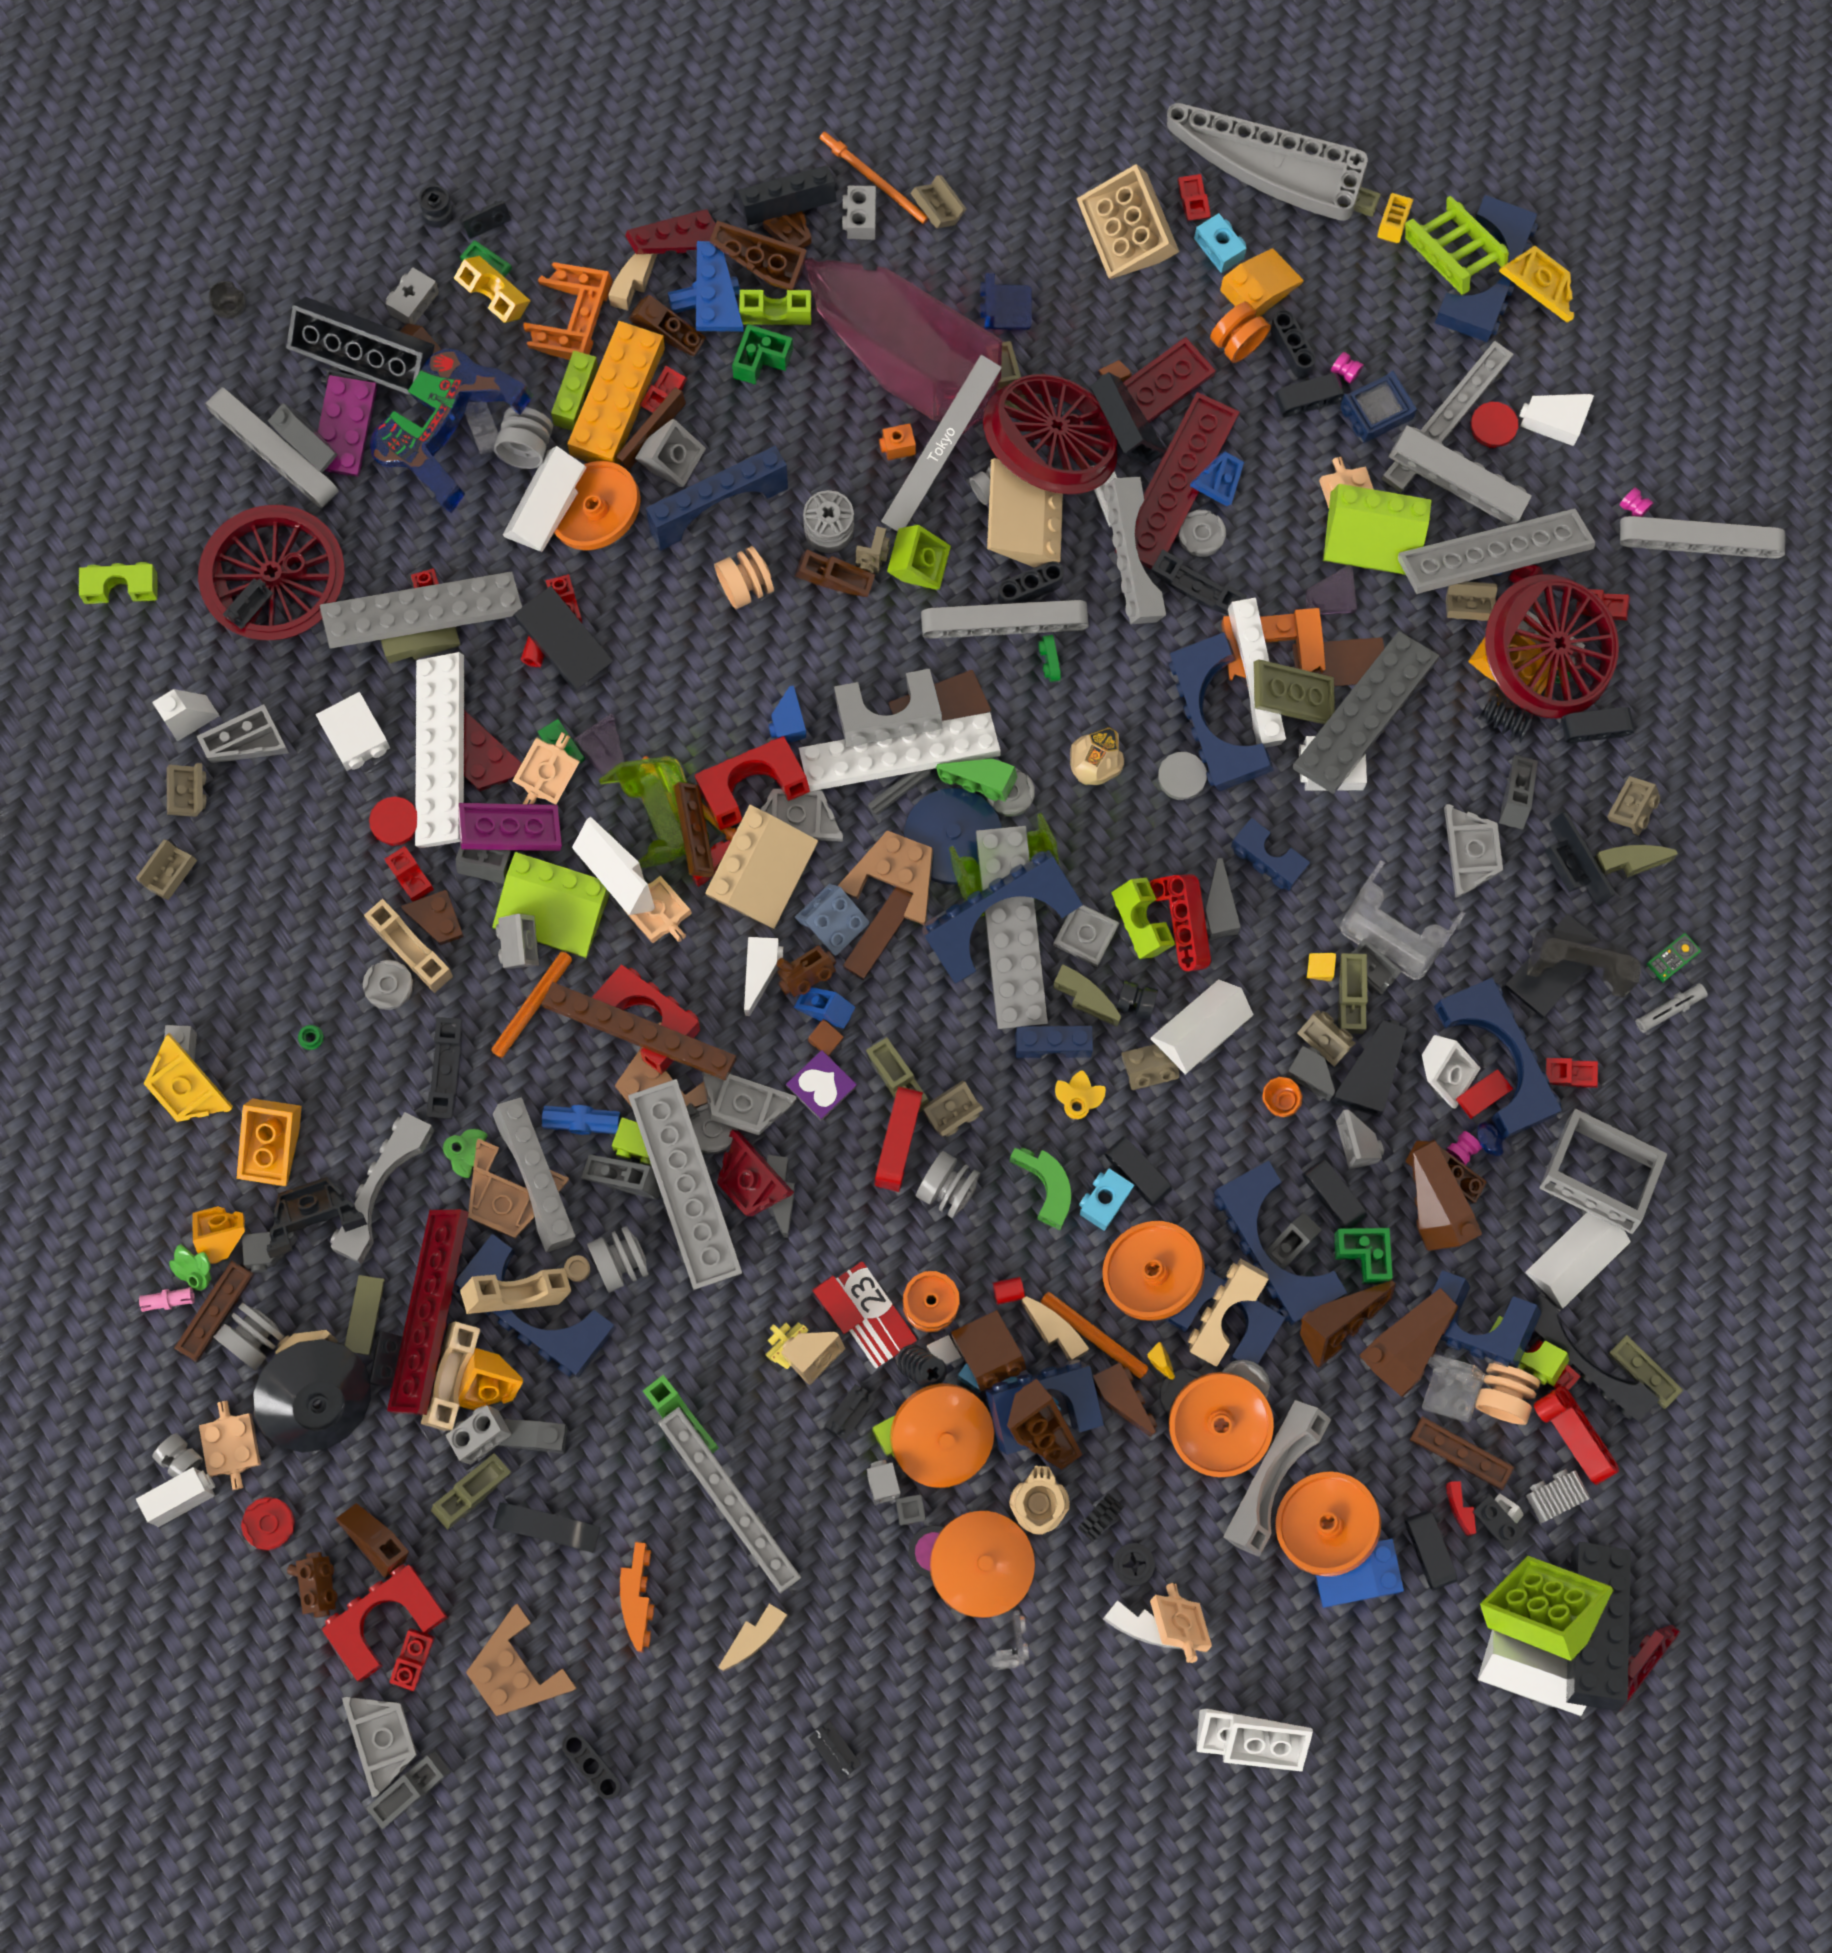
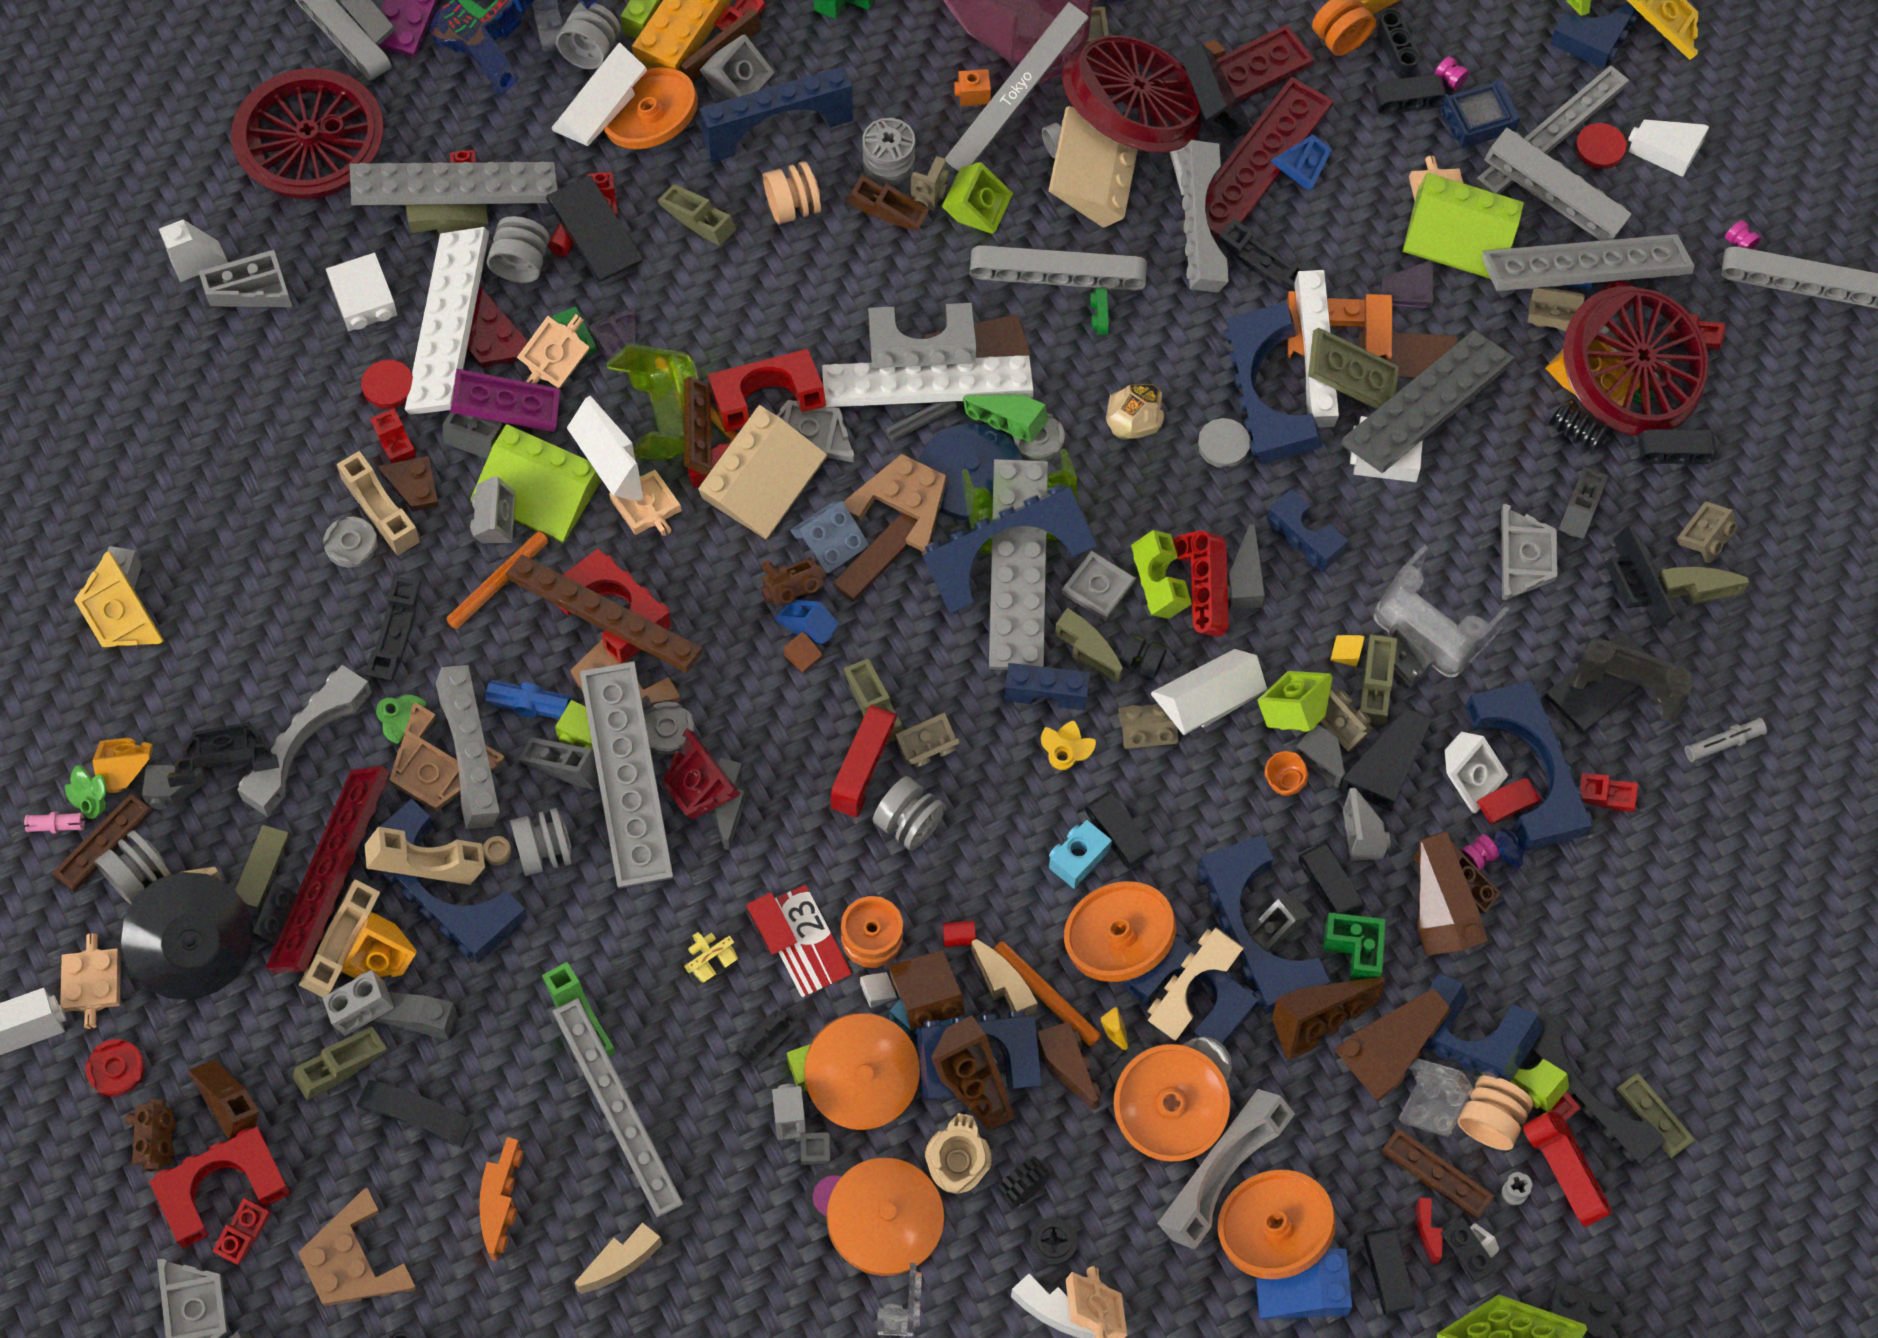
camera: 10 degrees right, 10 degrees down
(97, 582) = (130, 120): lime arch -> none
(166, 870) = (141, 399): dark tan bracket -> none
(176, 1456) = (29, 976): light grey wheel -> none
(185, 790) = (177, 326): dark tan bracket -> none
(248, 603) = (277, 155): black hinge -> none
(268, 1141) = (193, 678): light orange slope -> none
(305, 1032) = (256, 576): green plate -> none
(495, 670) = (518, 249): none -> light grey wheel
(657, 608) = (698, 214): none -> olive slope
(744, 1103) = (705, 704): light grey wing -> none
(761, 967) = (744, 575): white slope -> none
(787, 718) = (815, 334): blue slope -> none
(812, 1353) = (735, 966): tan slope -> none
(821, 1085) = (790, 700): tile -> none
(921, 1365) = (850, 995): black piece -> none
(1038, 576) = (1099, 229): black beam -> none
(1055, 1182) = (1023, 818): bright green arch -> none
(1202, 533) = (1278, 212): light grey tile -> none
(1283, 1026) = (1296, 701): none -> lime slope
(1539, 1463) = (1521, 1181): none -> light grey bush
(1557, 1496) = (1539, 1232): light grey brick -> none
(1577, 1258) = (1594, 982): white slope -> none
(1589, 1198) = (1615, 918): light grey window -> none
(1673, 957) = (1734, 689): tile -> none

